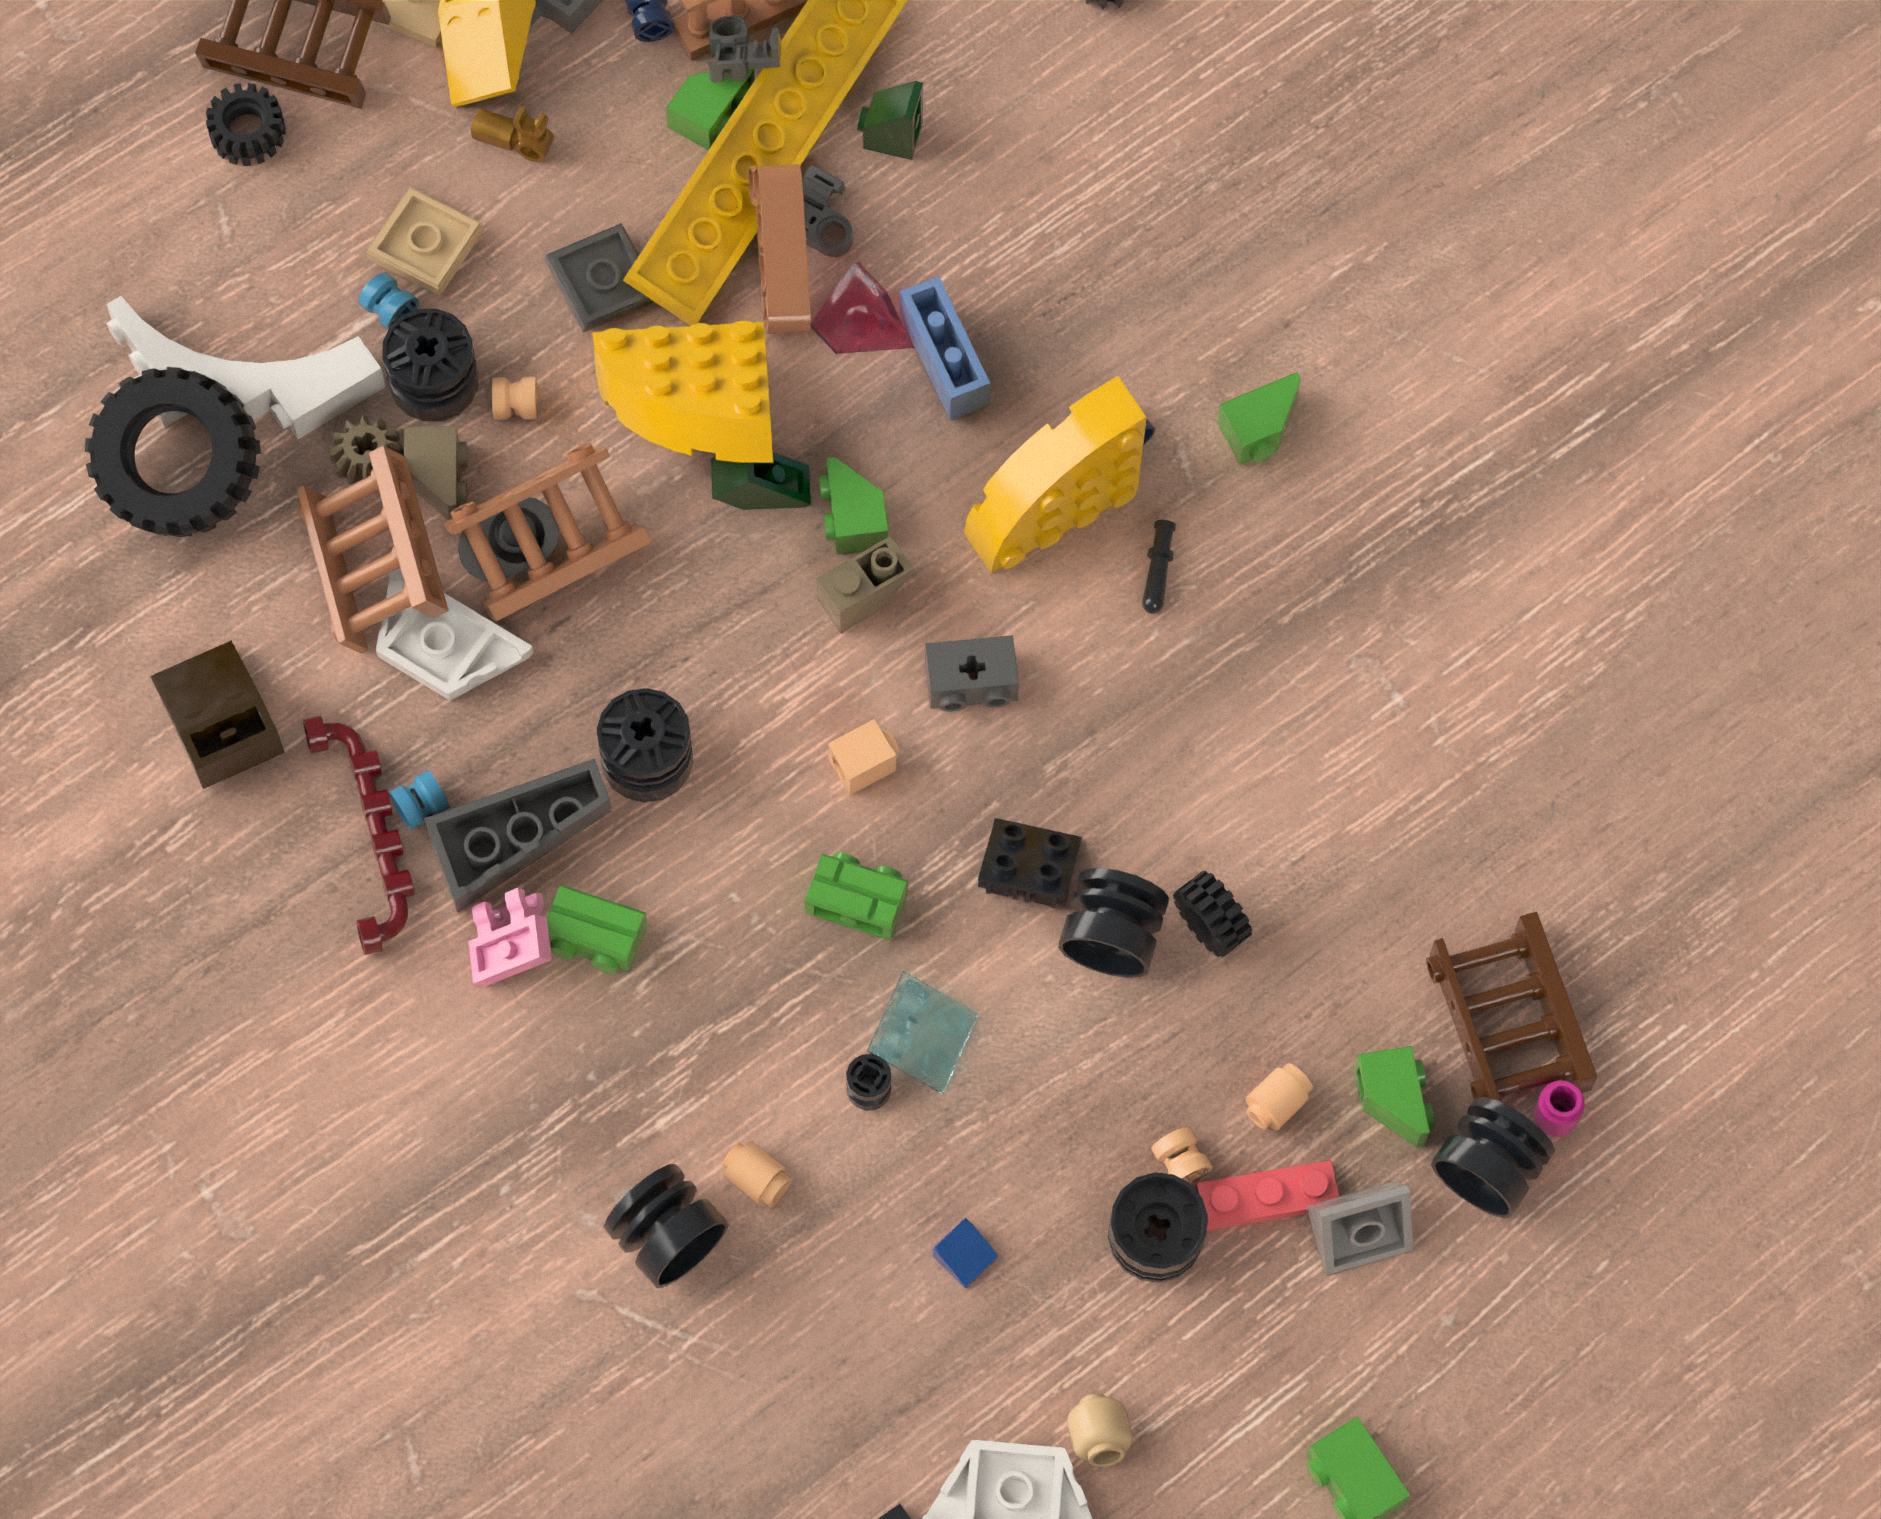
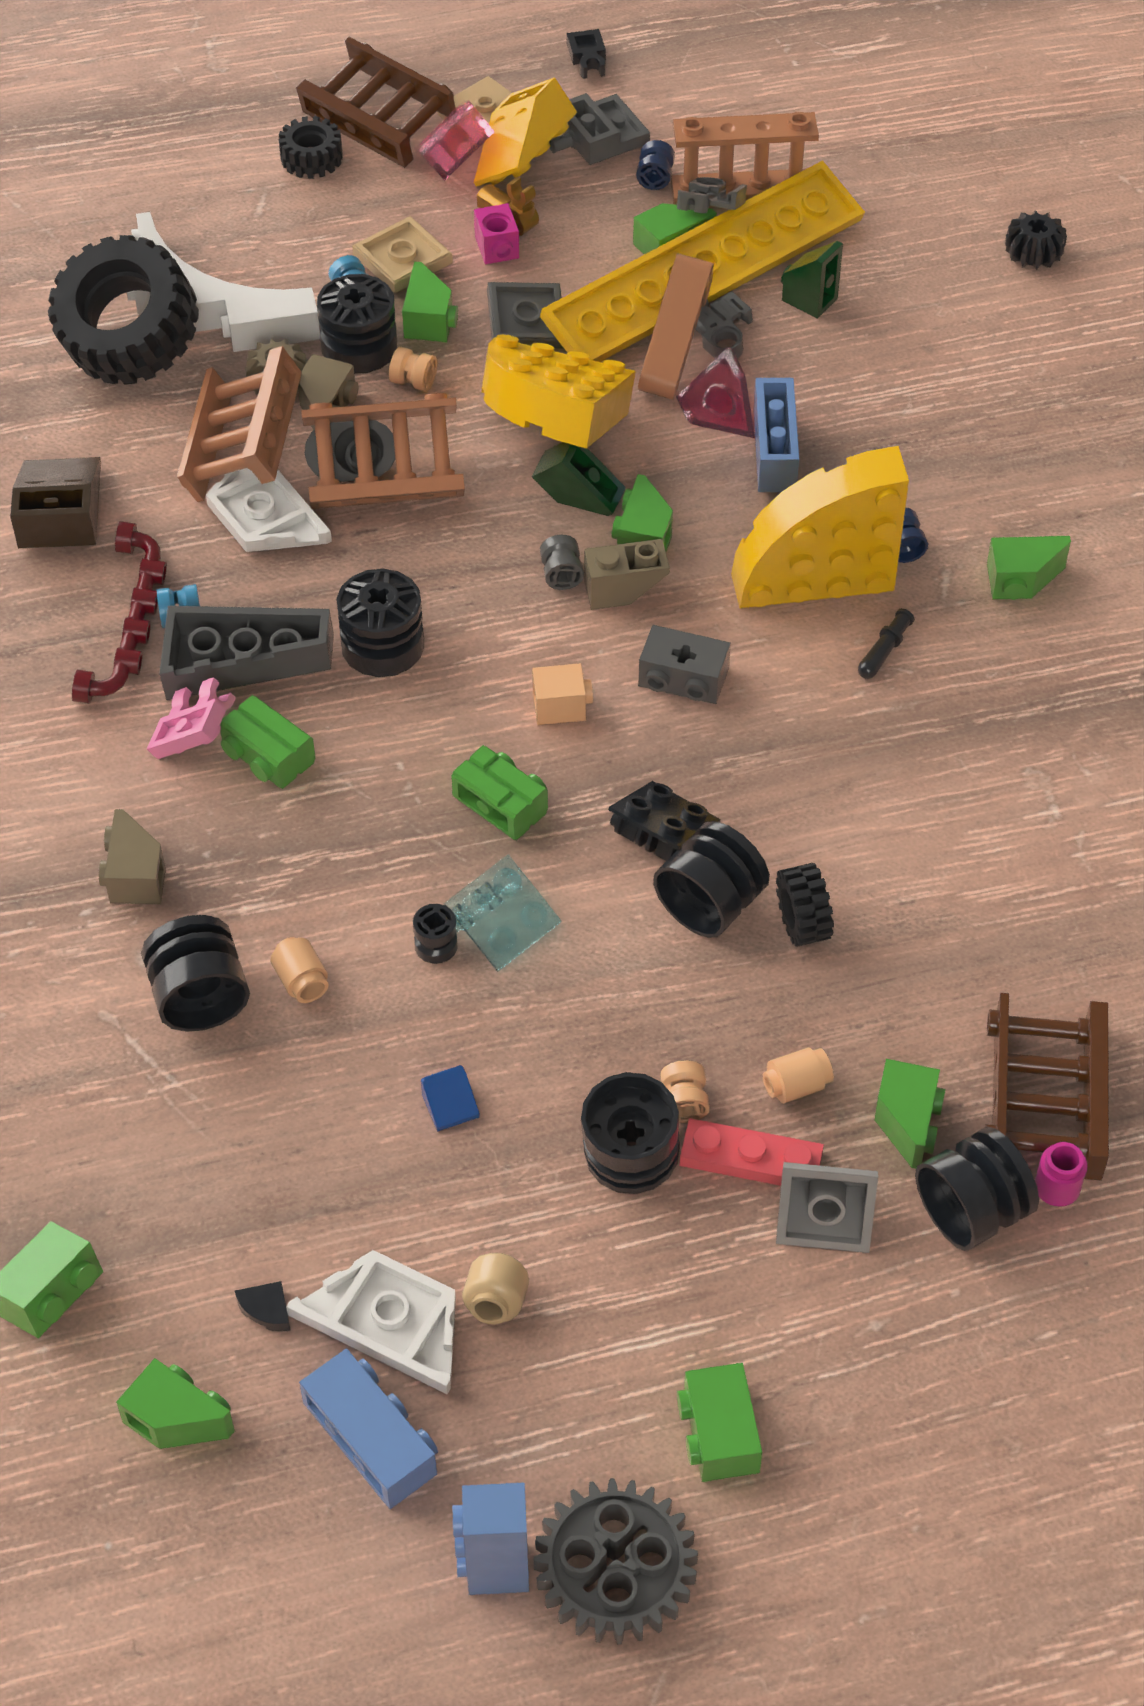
camera: 25 degrees right, 15 degrees down
(406, 60) = (454, 139): none -> clear pink slope
(491, 306) = (428, 307): none -> bright green slope
(513, 162) = (496, 233): none -> dark pink brick
(533, 1120) = (133, 863): none -> dark tan slope
(791, 594) = (561, 562): none -> dark grey wheel

